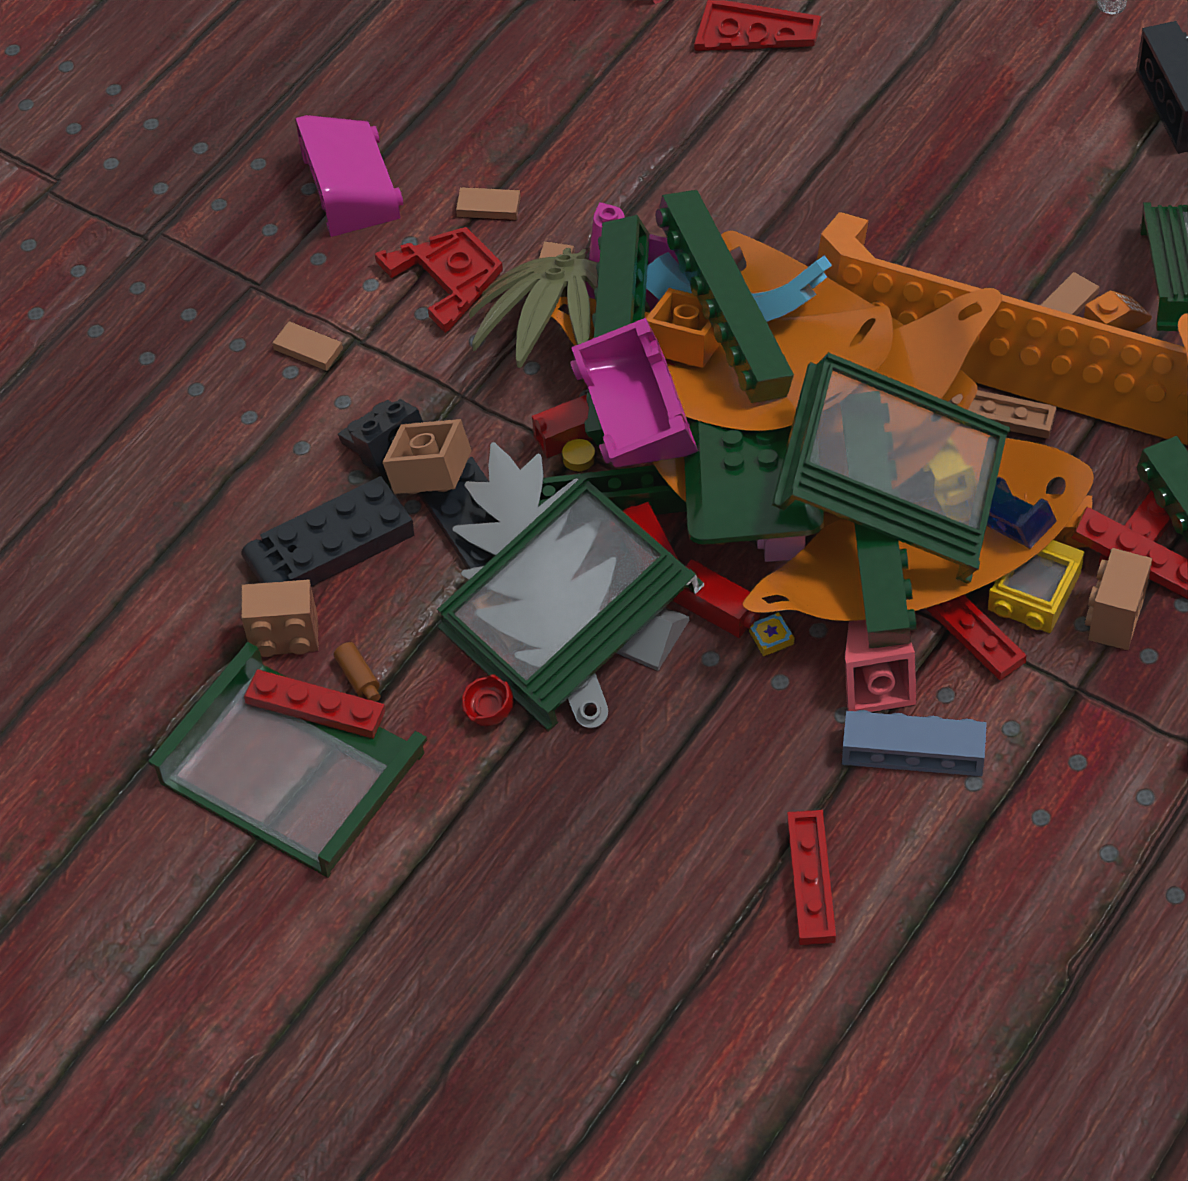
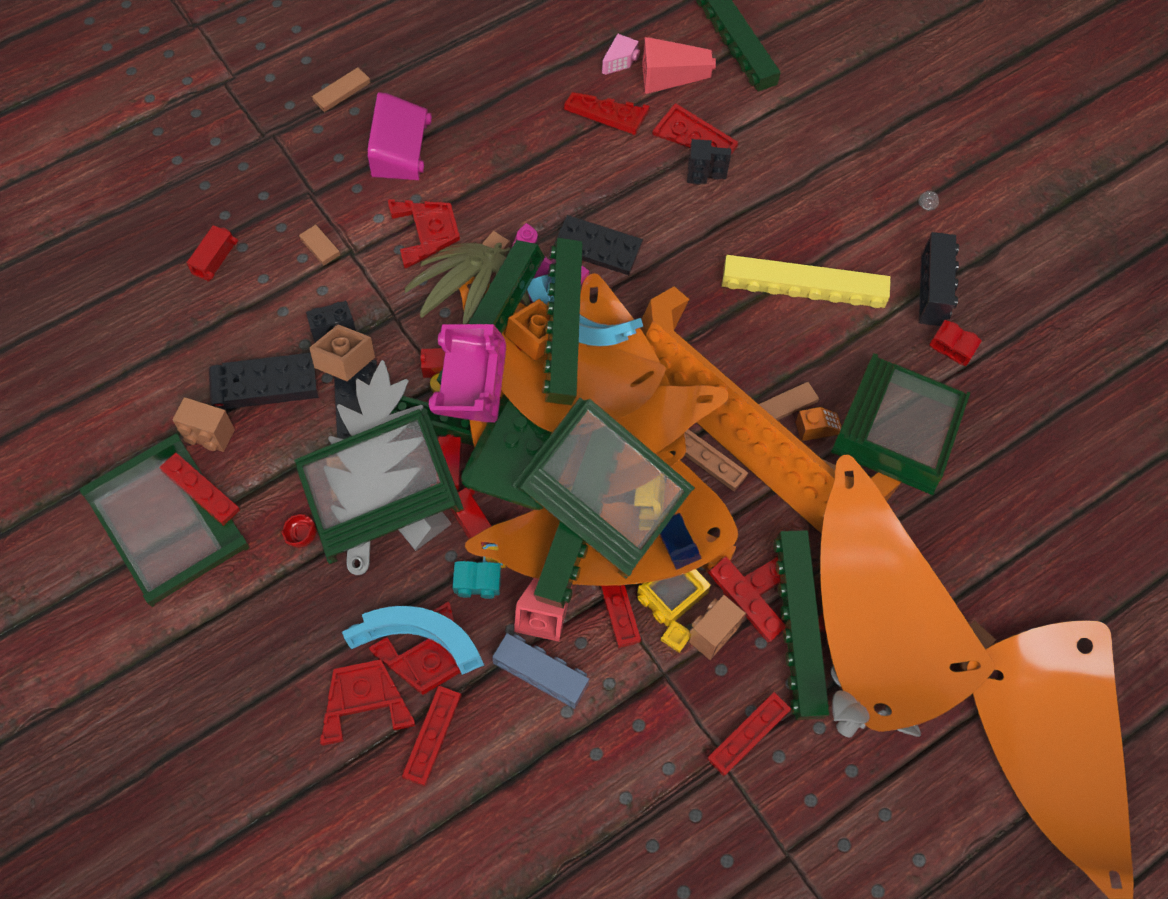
camera: 15 degrees right, 10 degrees up
(160, 408) = (211, 253): none -> red brick
(225, 142) = (341, 89): none -> nougat tile
(357, 671) = (236, 477): dark orange cylinder -> none
(488, 203) = (474, 191): nougat tile -> none
(618, 42) = (617, 115): none -> red wing
(685, 859) = (359, 690): none -> red wing
(725, 743) = (417, 622): none -> medium azure arch
(730, 204) = (602, 245): none -> black plate
(757, 790) = (423, 665): none -> red wing
(765, 667) = (477, 578): none -> teal brick
(793, 53) = (699, 162): none -> black brick
(1003, 153) = (806, 281): none -> light yellow brick
(1069, 637) = (676, 636): none -> yellow tile

